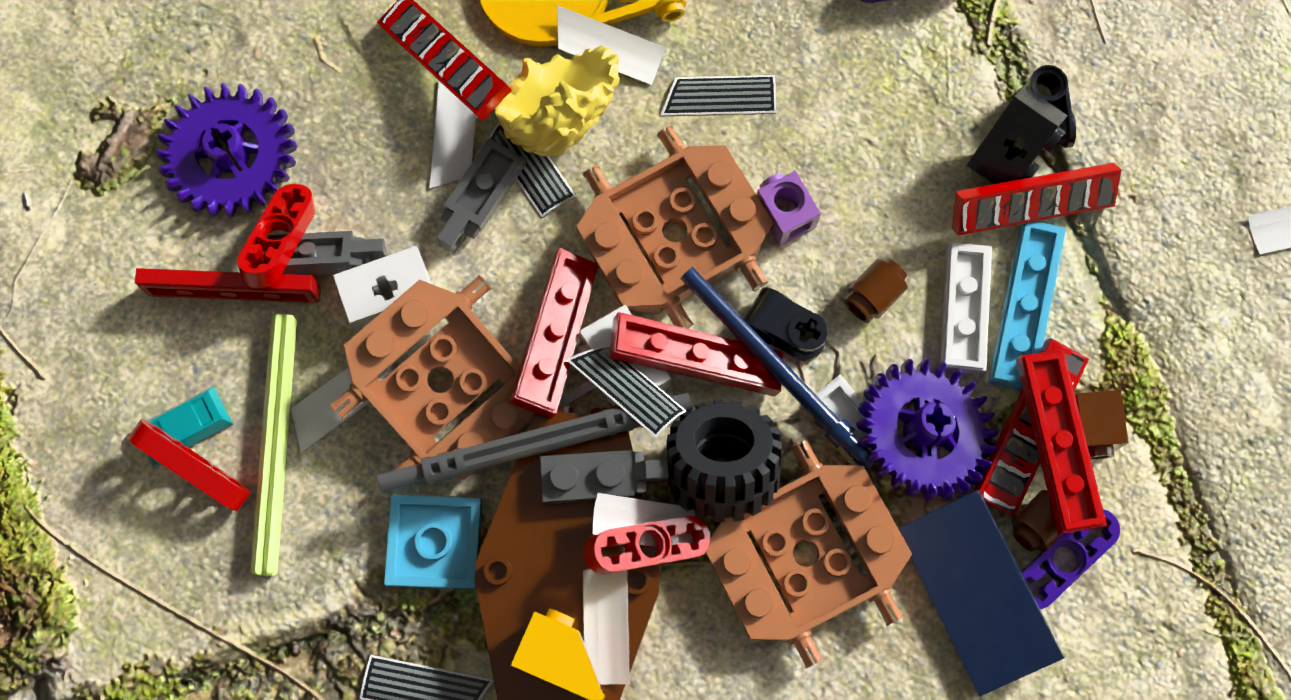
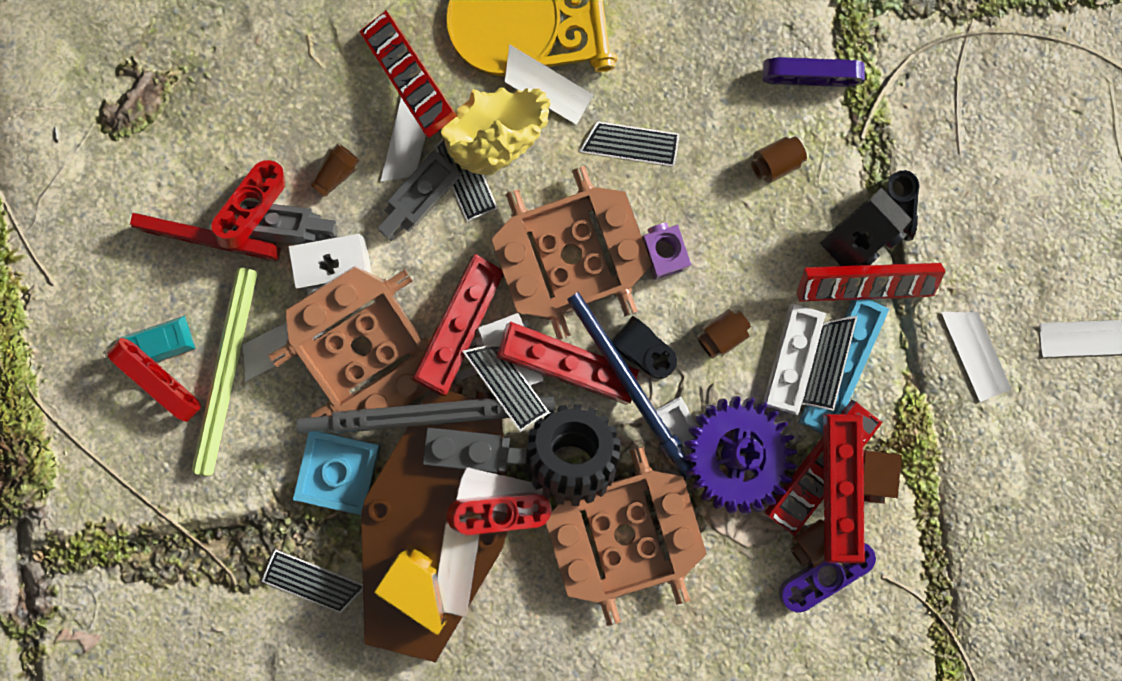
camera: 10 degrees right, 10 degrees up
(217, 116) = (200, 104): dark purple gear -> none
(372, 181) = (334, 169): none -> reddish brown cone
(897, 81) = (778, 159): none -> reddish brown brick
(980, 593) = (754, 591): dark blue tile -> none
(1009, 303) = (829, 363): none -> sticker
(1182, 264) = (977, 354): none -> white sticker

